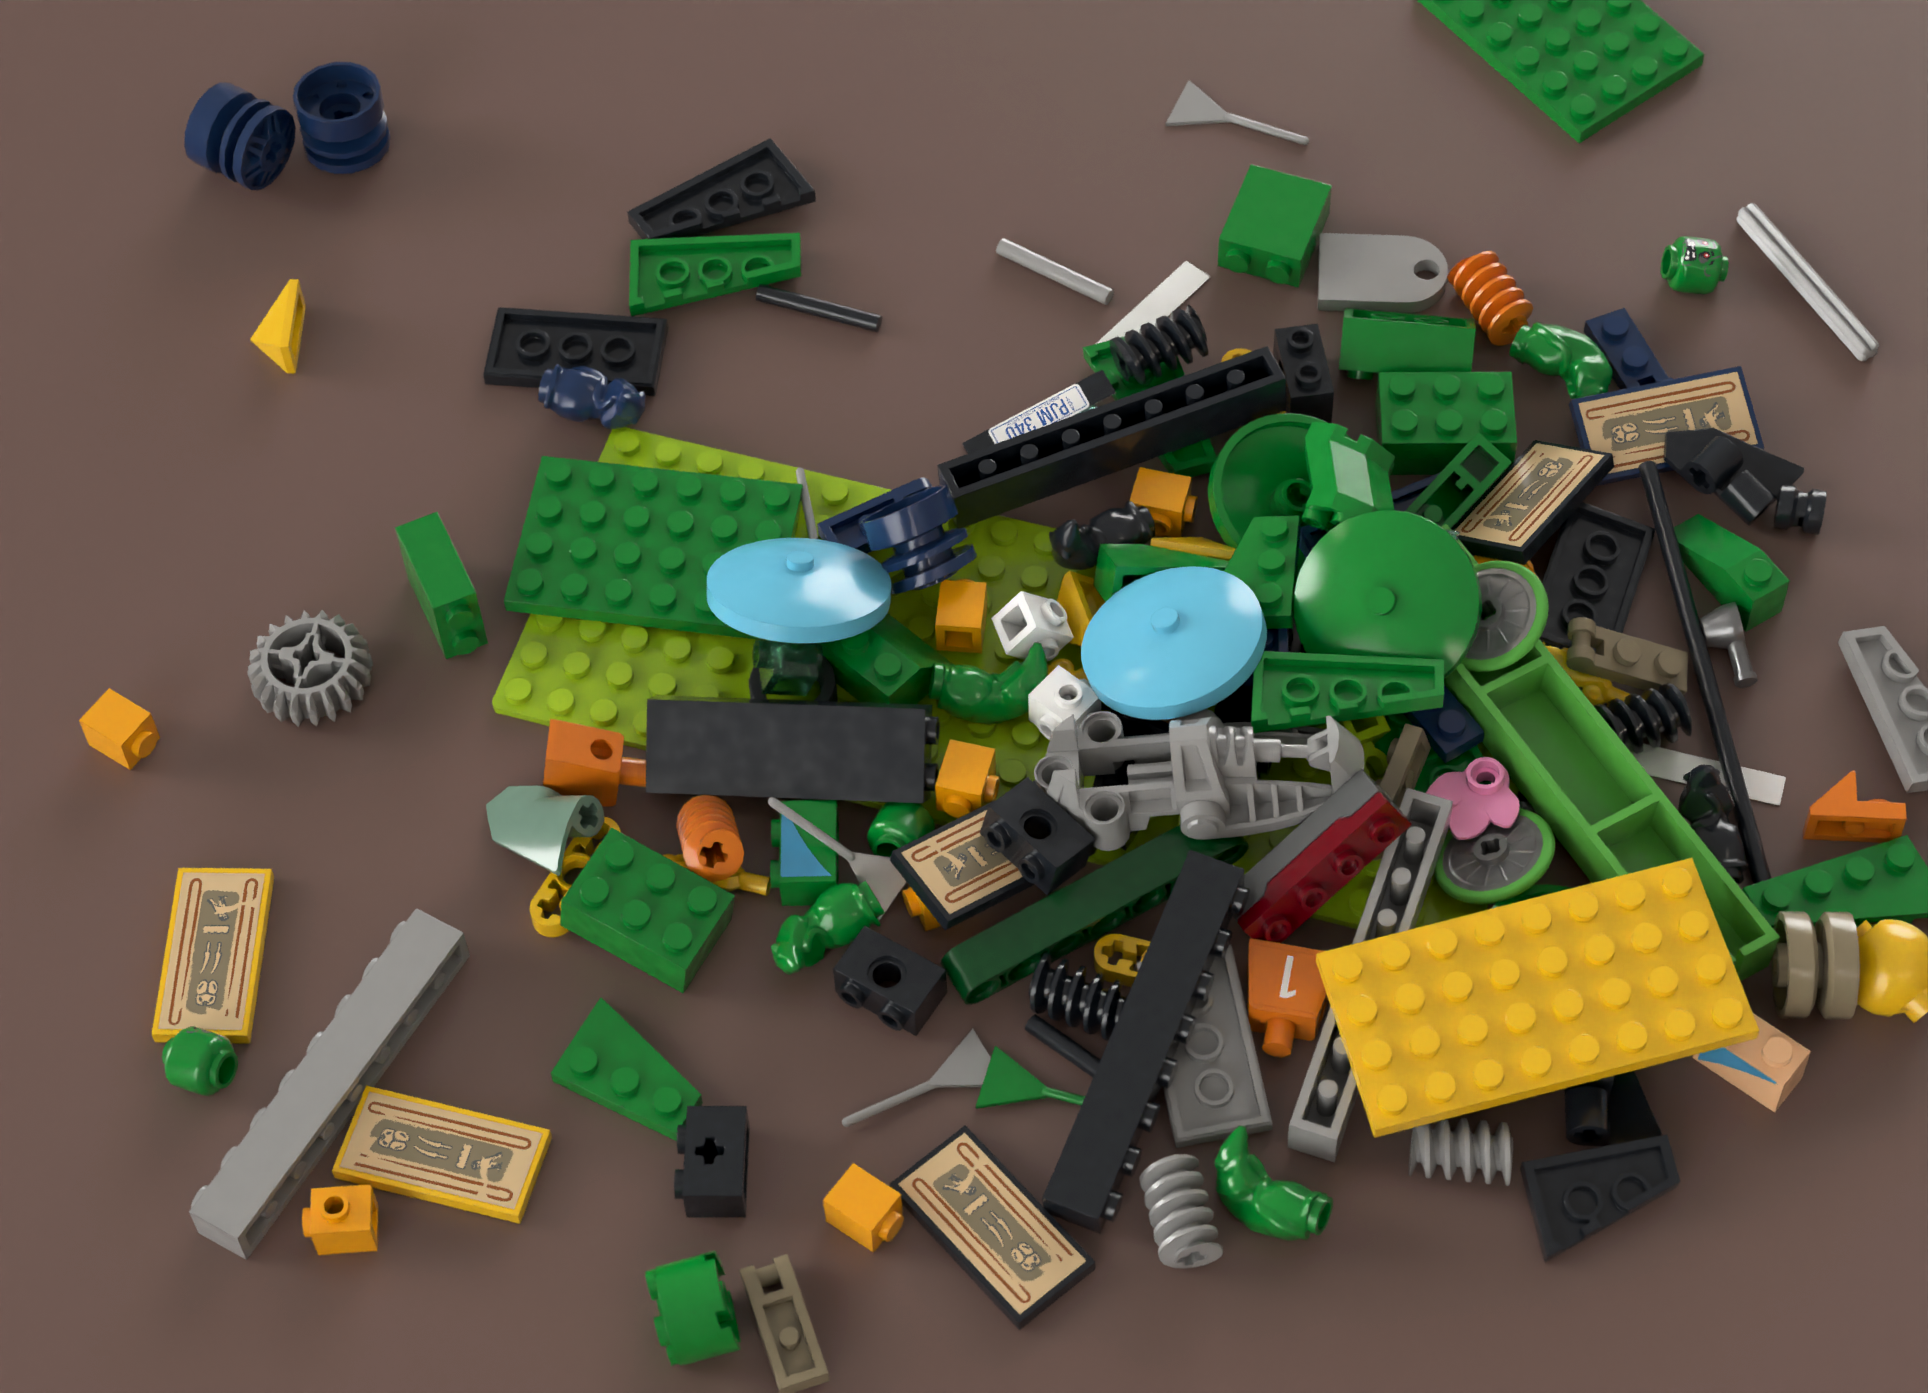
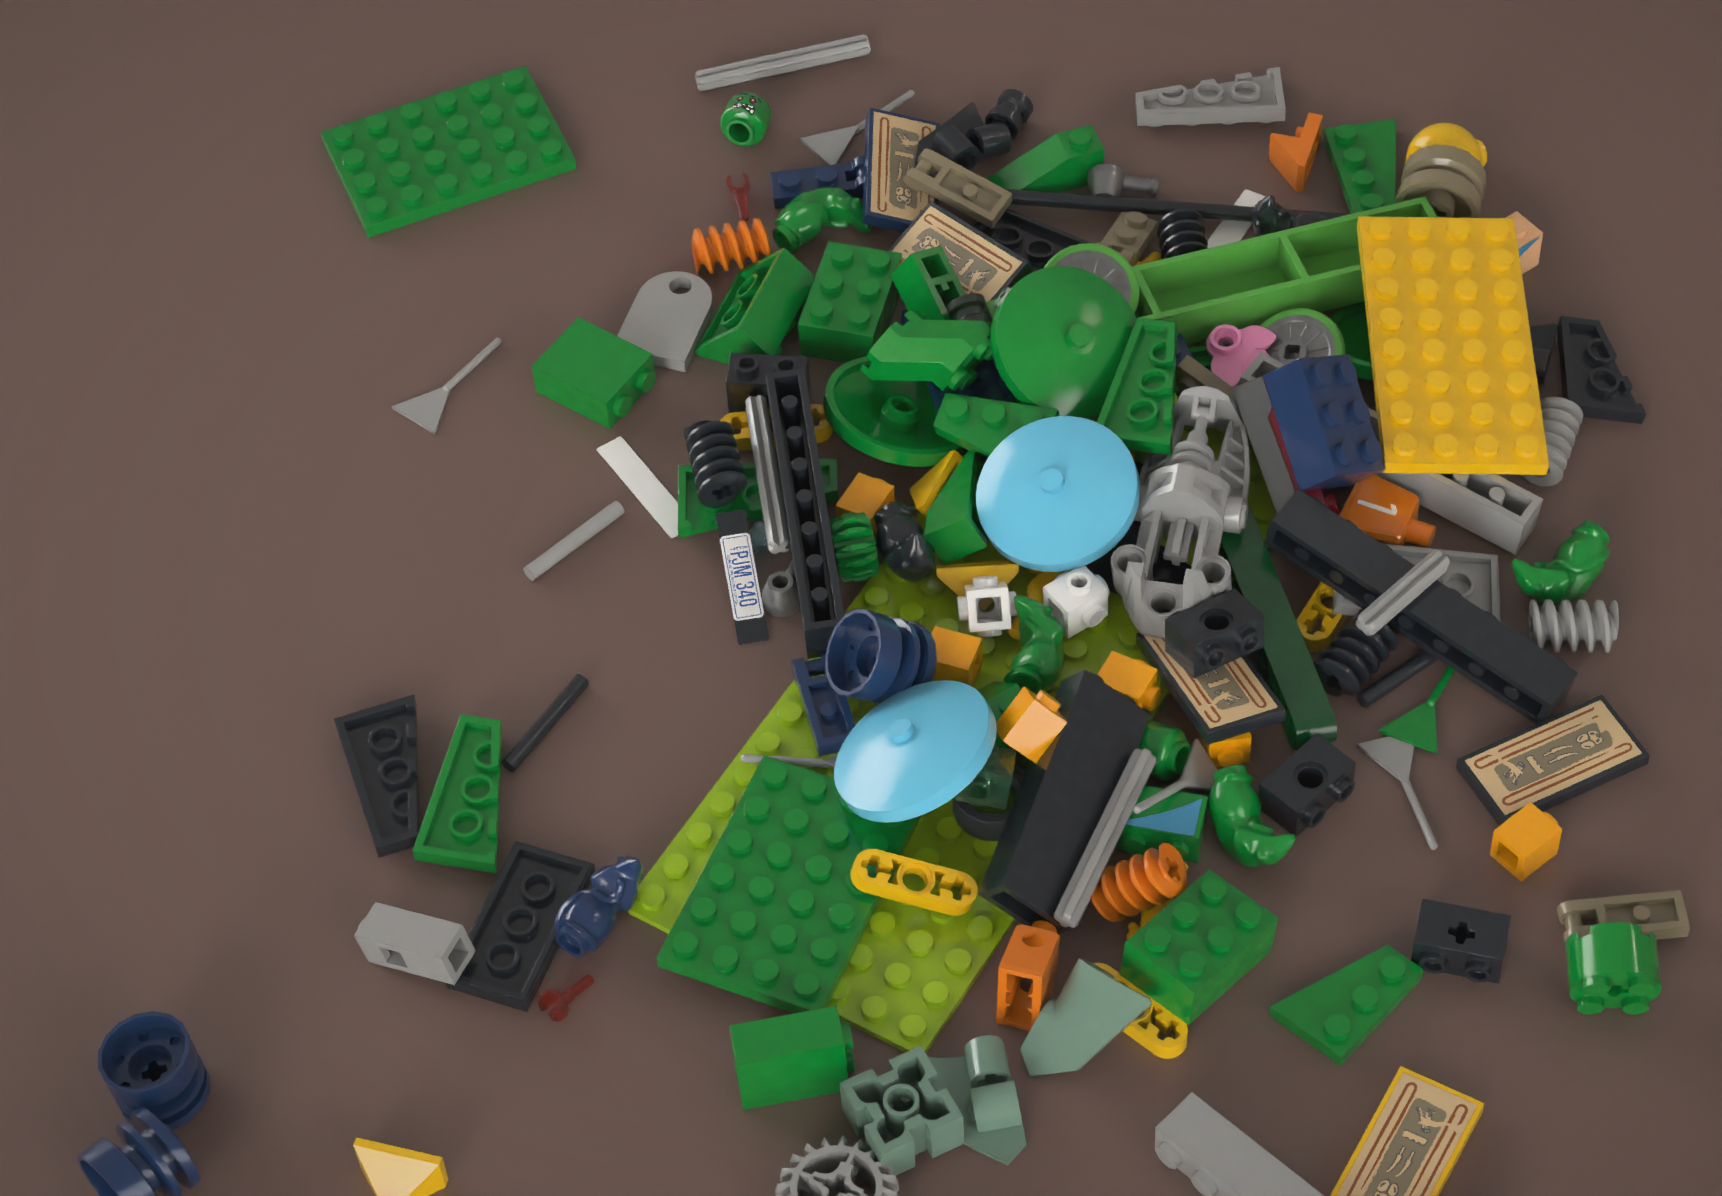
camera: 75 degrees left, 5 degrees down
(402, 694) = (902, 1111): none -> sand green brick
(446, 765) = (985, 1097): none -> sand green panel
(493, 404) = (553, 996): none -> clear red hand
(522, 268) = (414, 943): none -> light grey brick
(653, 611) = (897, 891): none -> yellow beam
(751, 791) = (1104, 838): none -> light grey axle
(850, 679) = (1031, 723): none -> light orange brick
(1090, 492) = (854, 547): none -> green gear
(1131, 1003) = (1402, 592): none -> light grey axle
(1335, 869) = (1324, 422): none -> dark blue brick
(1426, 506) = (968, 308): none -> pearl dark grey wheel
(1593, 283) = (740, 196): none -> clear red hand
(1641, 476) = (958, 188): none -> dark tan plate
(1701, 356) = (833, 144): none -> light grey piece

